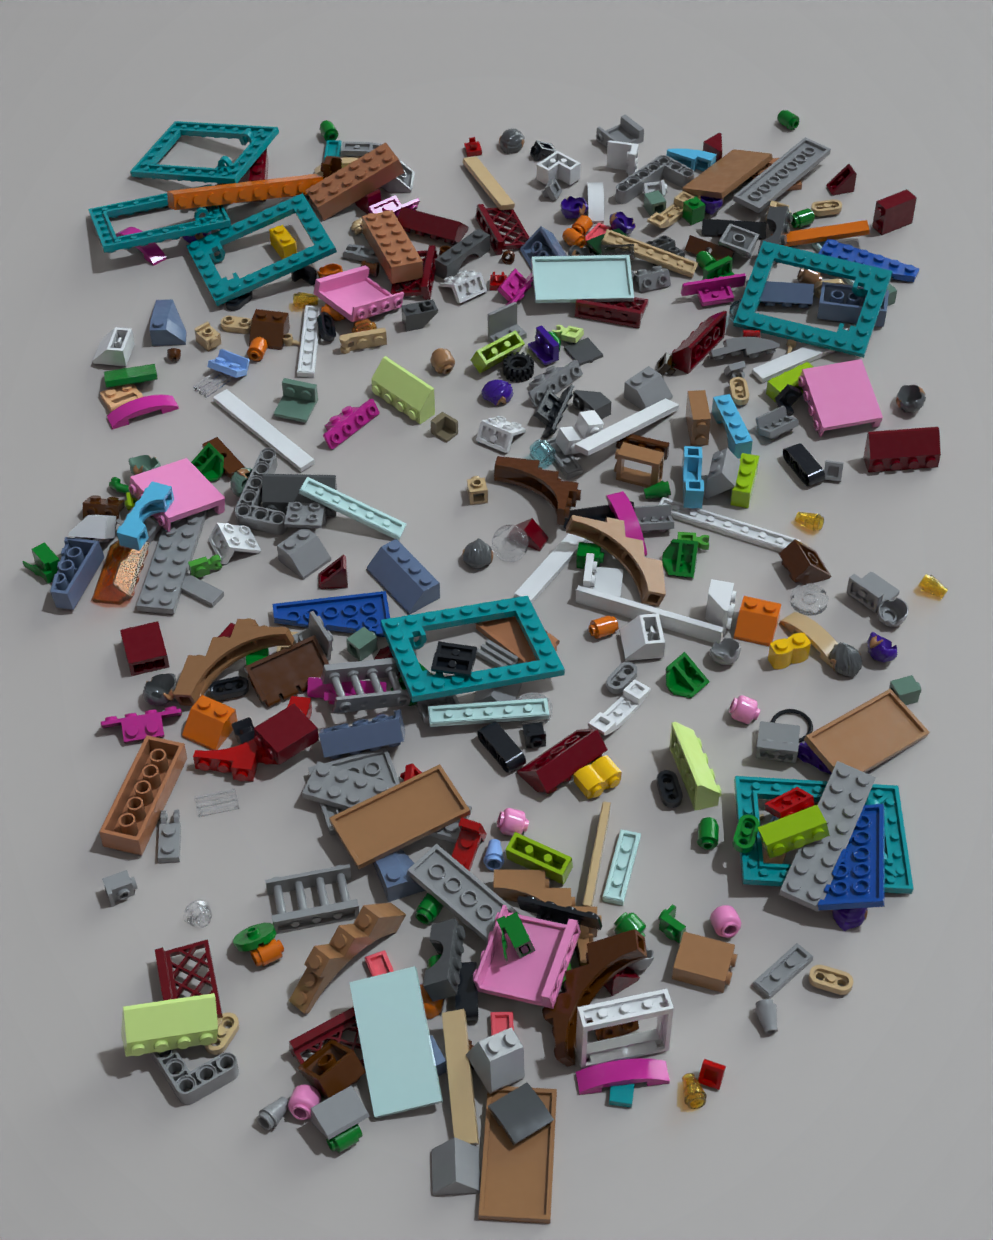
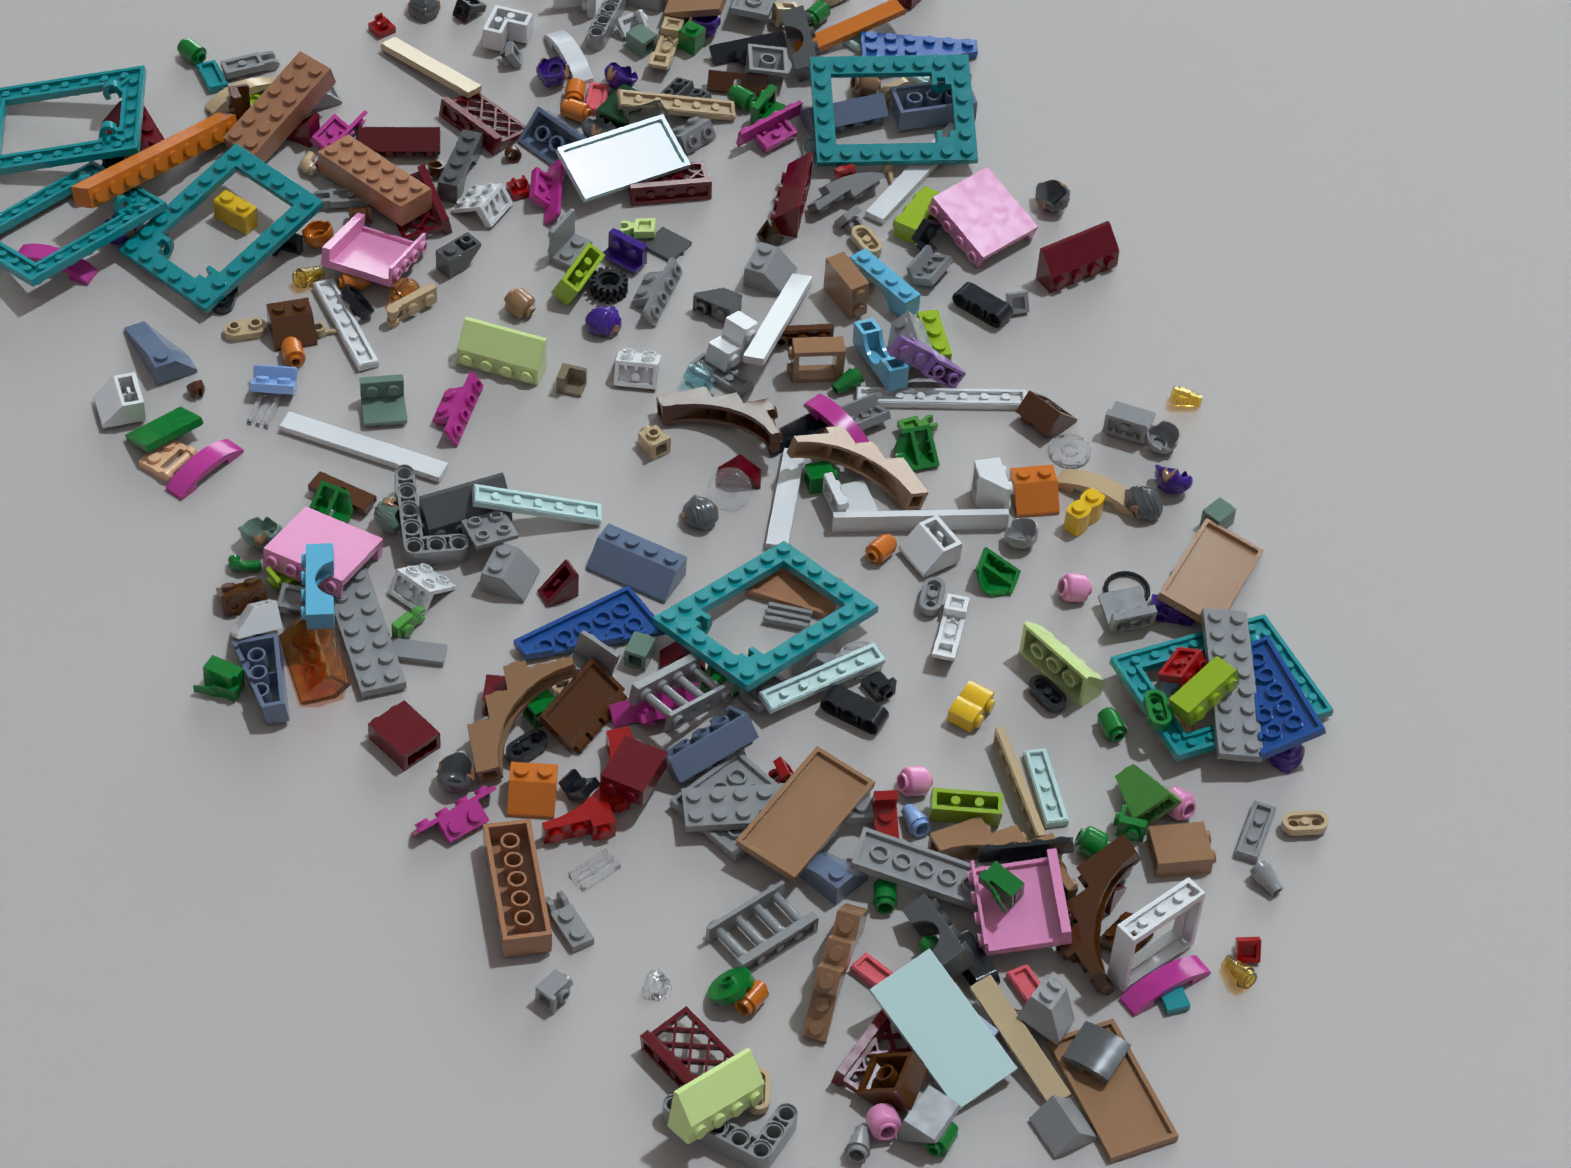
camera: 30 degrees left, 0 degrees up
(207, 336) = (223, 355): tan brick -> none
(454, 659) = (764, 632): black slope -> none
(551, 409) = (679, 323): black bracket -> none
(563, 760) = (925, 701): dark red slope -> none
(698, 903) = (1145, 795): none -> bright green slope
(724, 490) = (926, 360): none -> medium lavender slope
(810, 520) = (1024, 365): clear yellow cone -> none

